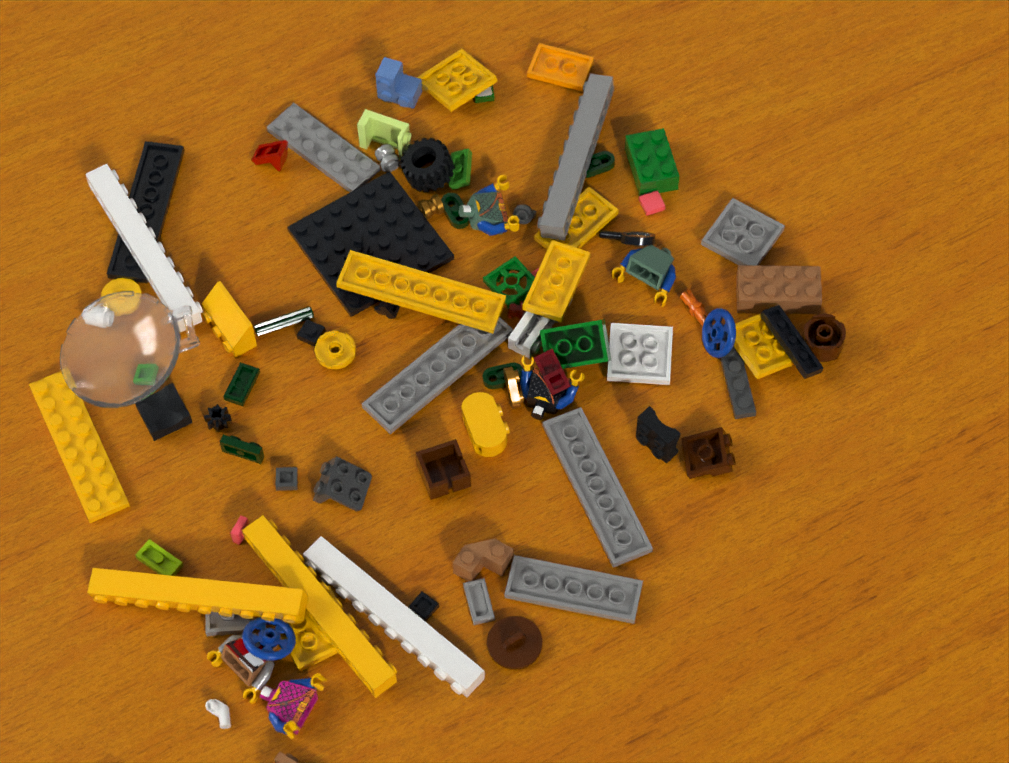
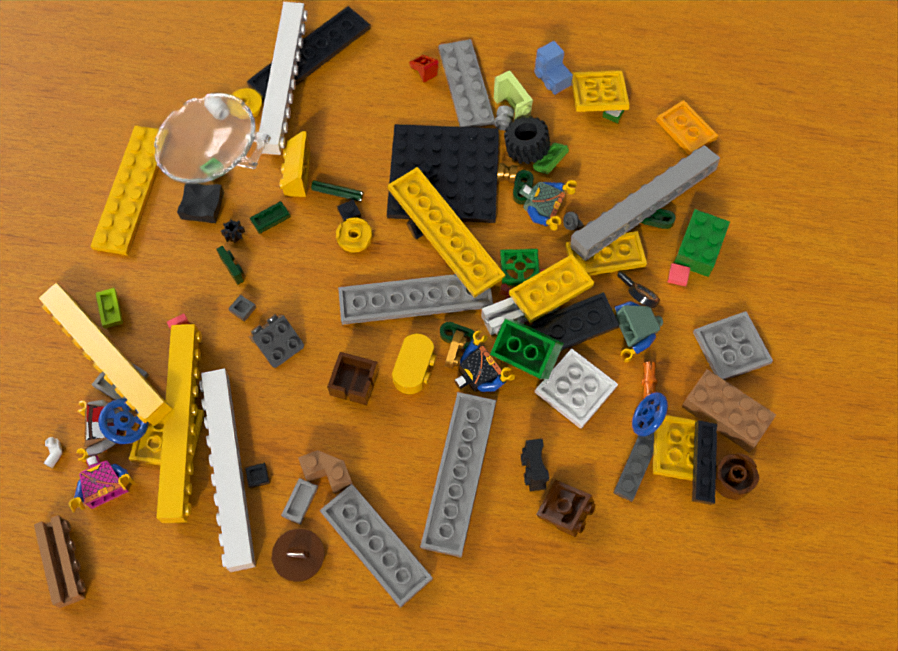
camera: 35 degrees right, 5 degrees up
(552, 372) = (491, 358): dark red slope -> none
(600, 294) = (578, 321): none -> black hinge

